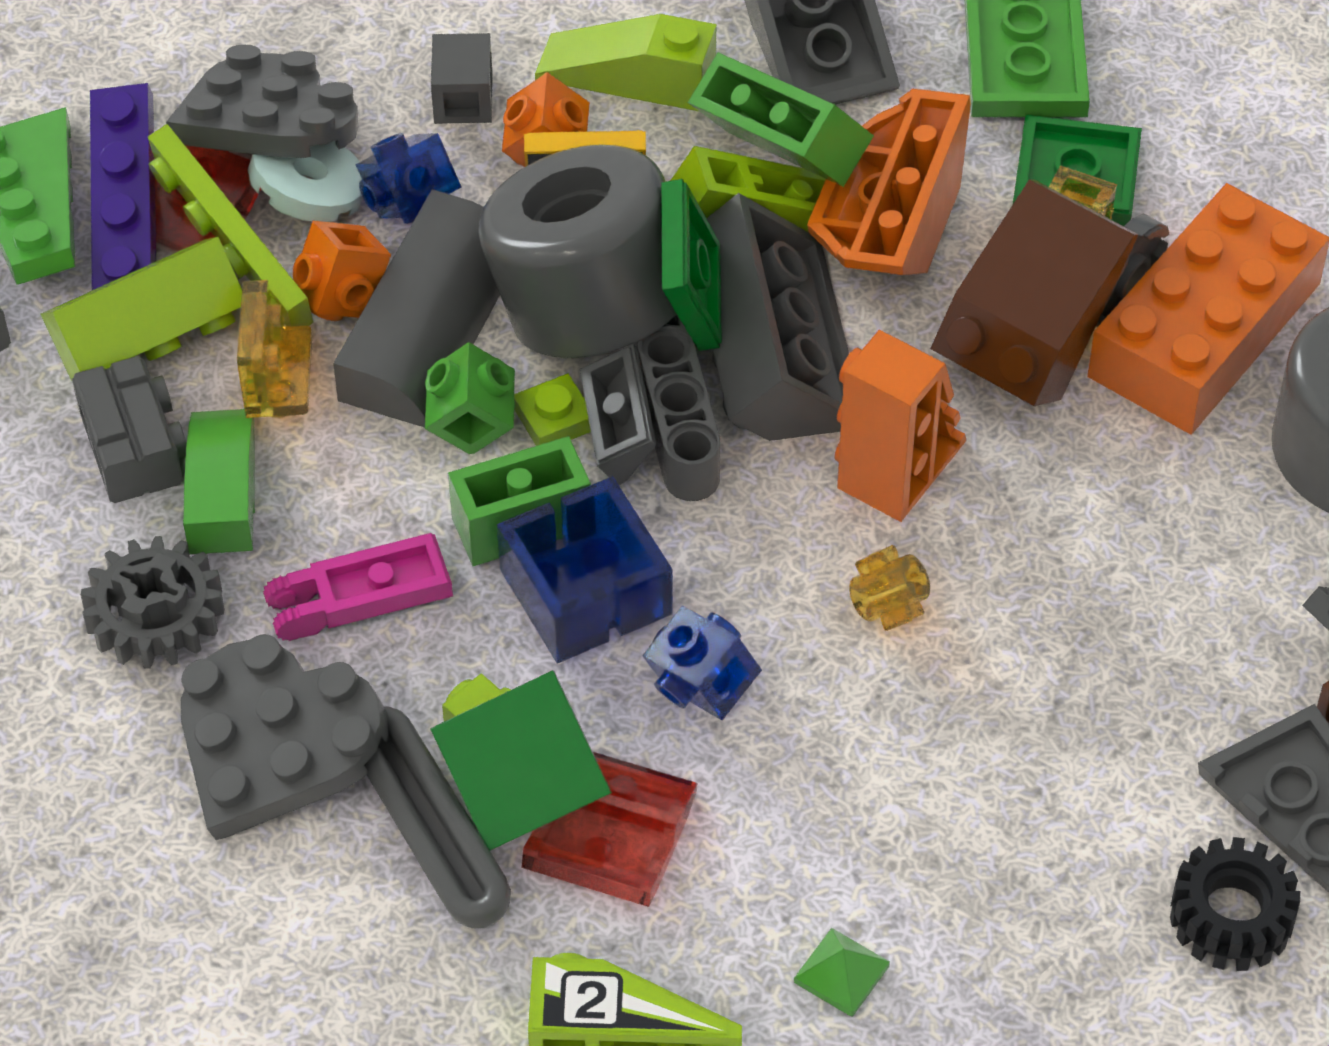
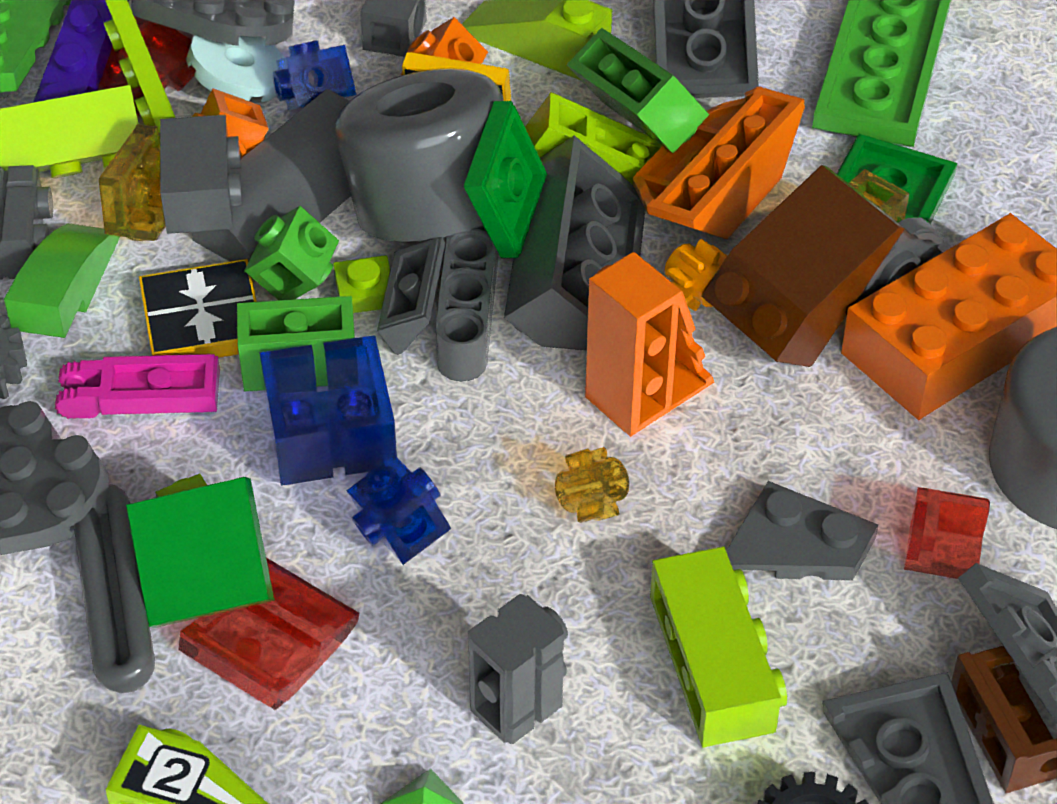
camera: 15 degrees right, 5 degrees down
(342, 328) = (197, 174): none -> dark grey brick
(384, 484) = (196, 308): none -> black tile
(893, 804) = (517, 667): none -> dark grey brick
(913, 317) = (693, 270): none -> light orange gear
(1074, 731) = (716, 646): none -> lime brick
(1115, 595) = (800, 537): none -> dark grey wing
(1263, 556) = (945, 532): none -> clear red panel

